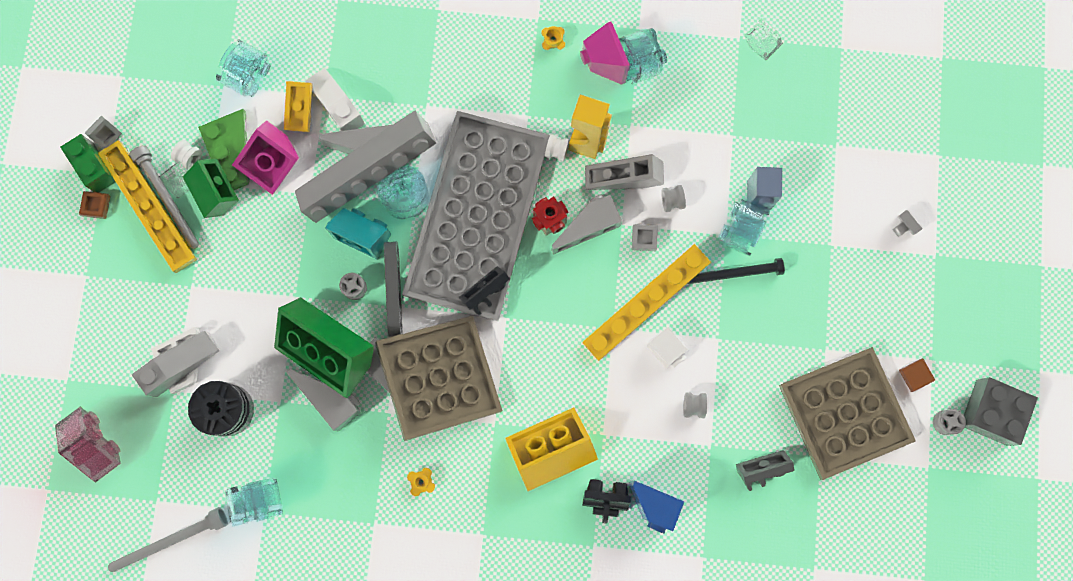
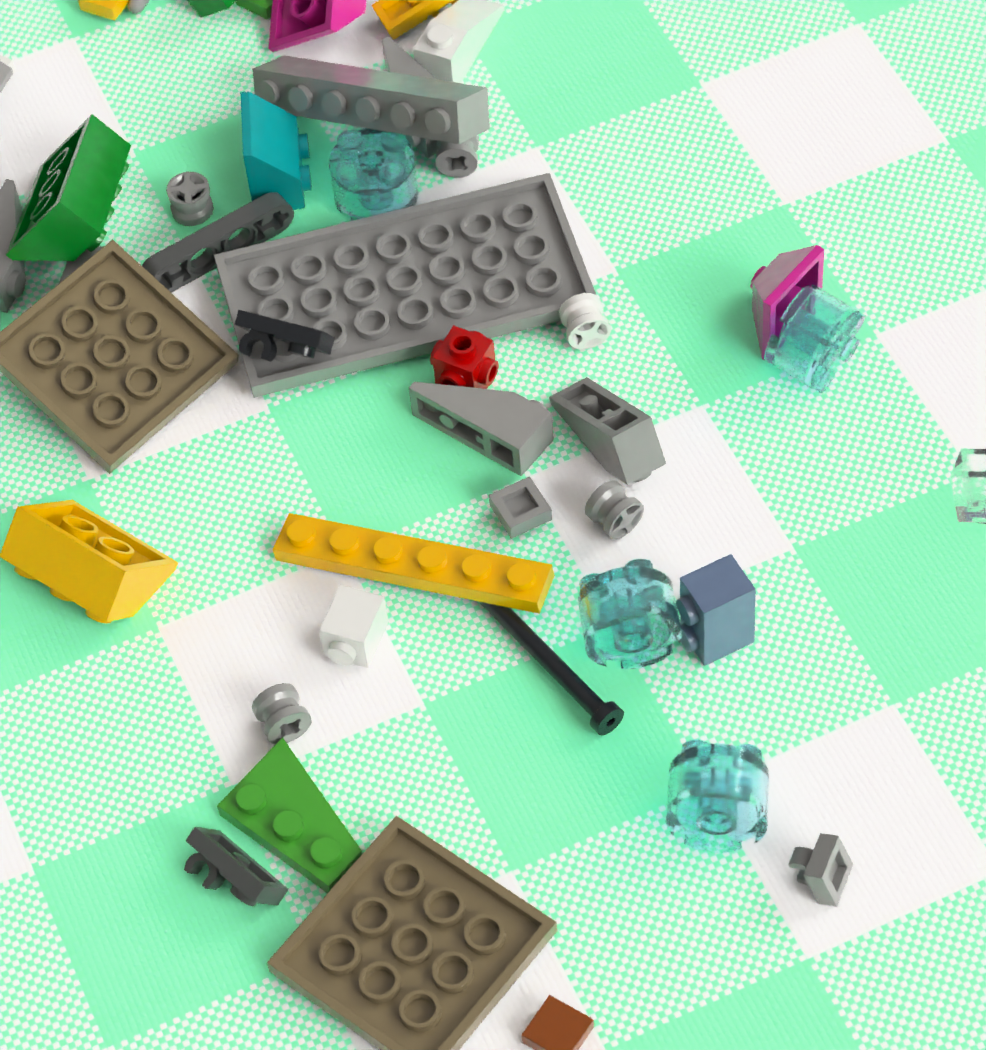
camera: 65 degrees right, 25 degrees down
(553, 31) = (764, 230): yellow plate -> none
(590, 127) = (626, 298): yellow arch -> none
(606, 503) = (41, 673): black hips -> none
(656, 507) = (70, 728): blue slope -> none
(748, 429) = (291, 818): none -> bright green wing
(855, 245) = (718, 795): none -> clear light blue brick

